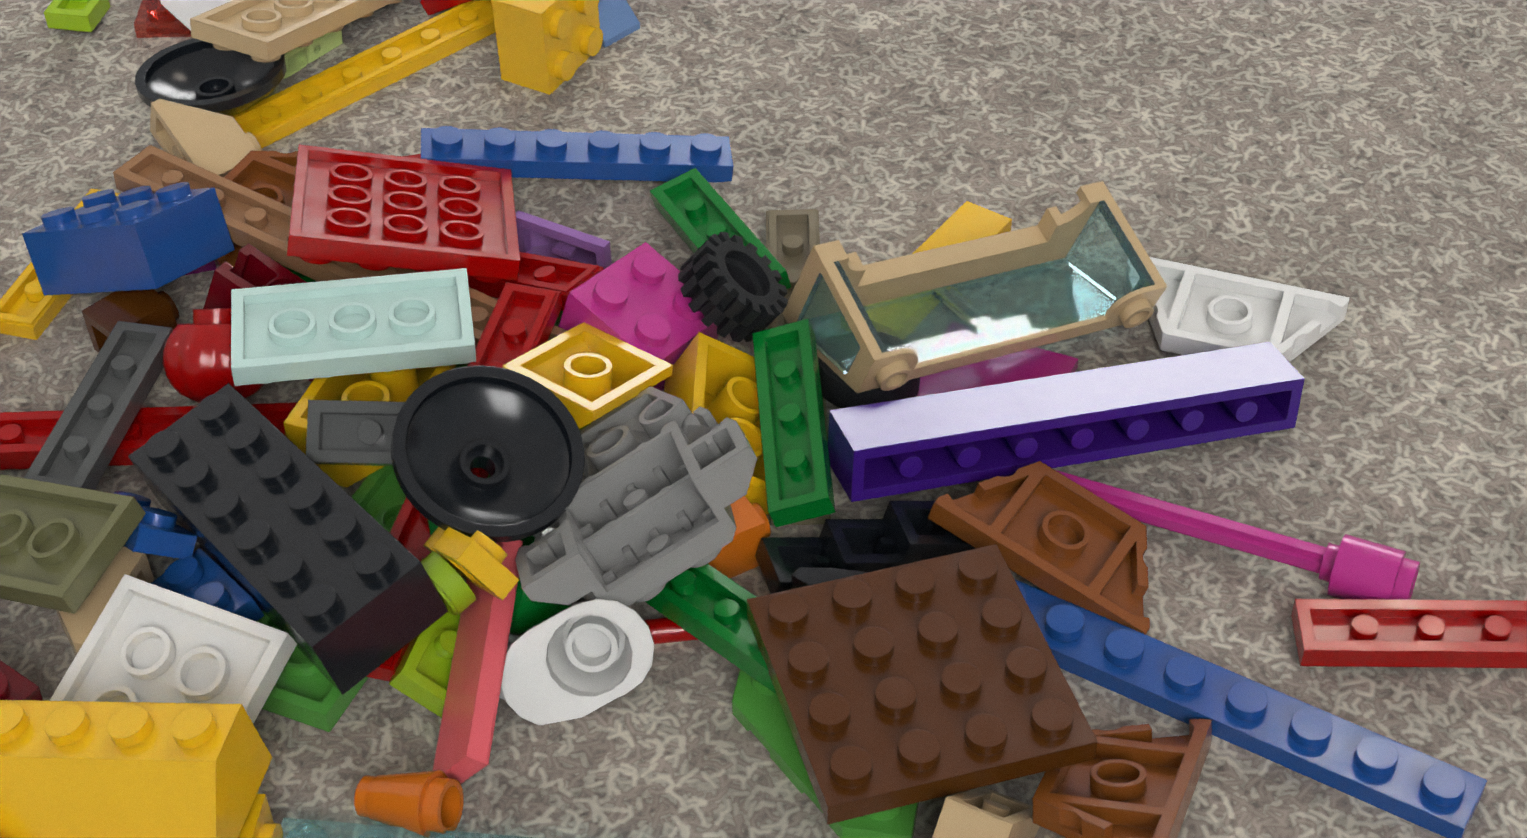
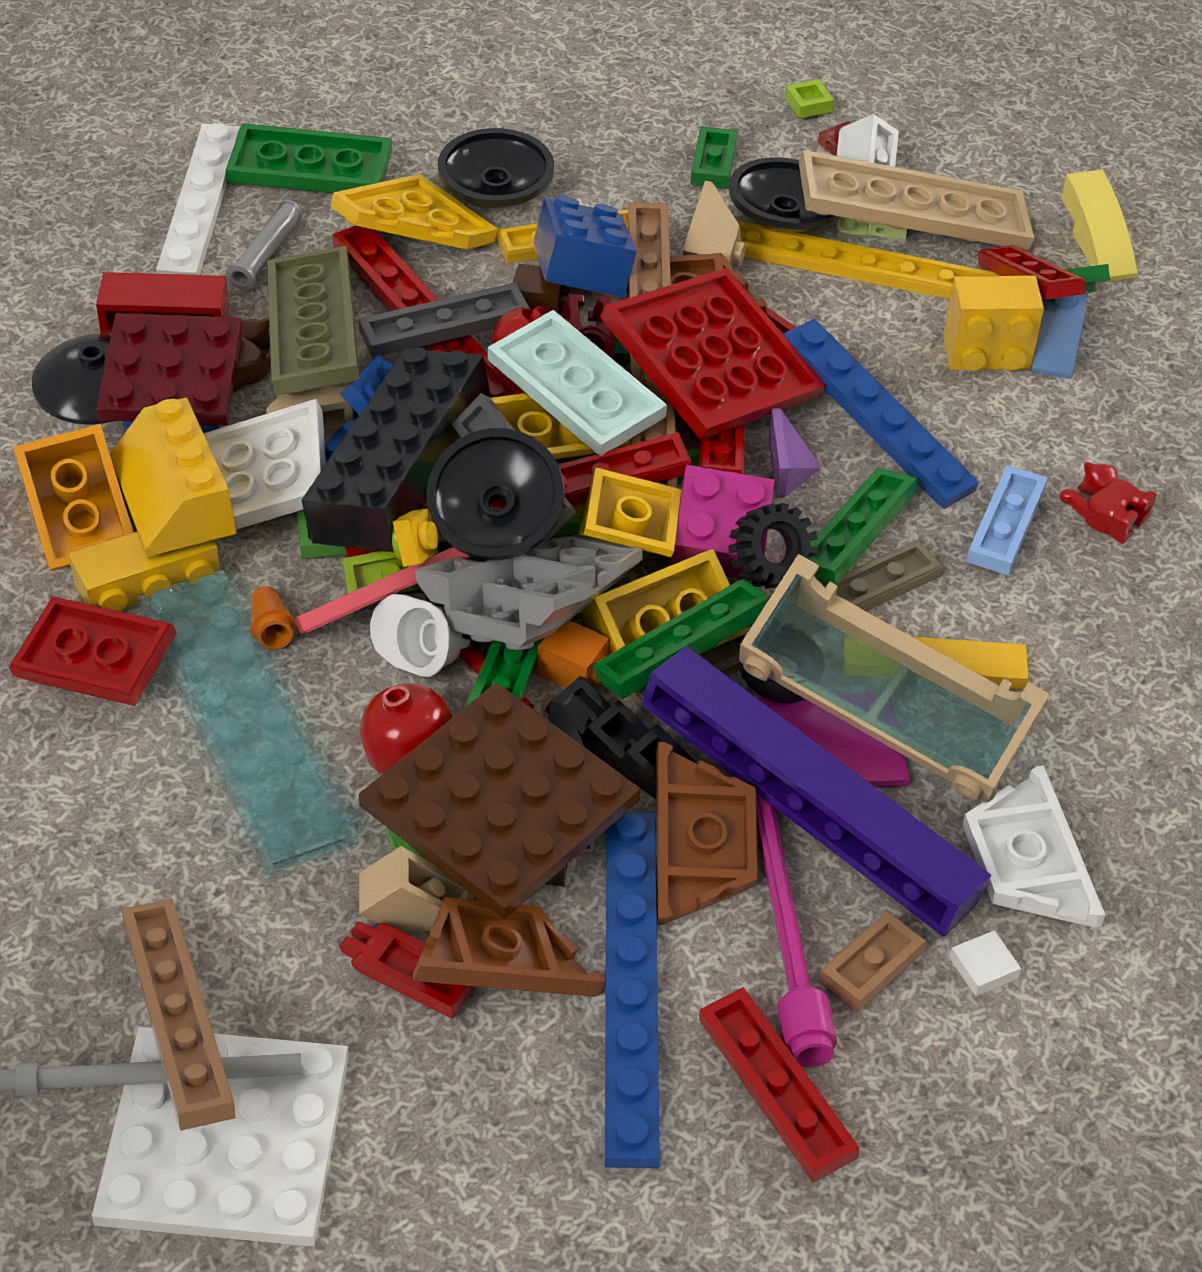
camera: 55 degrees right, 5 degrees up
(79, 108) = (714, 156): none -> green plate
(718, 737) = (399, 722): none -> red cylinder
(795, 141) = (1007, 520): none -> light blue plate
(835, 64) = (1113, 502): none -> red animal
(1306, 488) = (872, 961): none -> medium nougat plate
(1347, 412) = (985, 963): none -> white tile

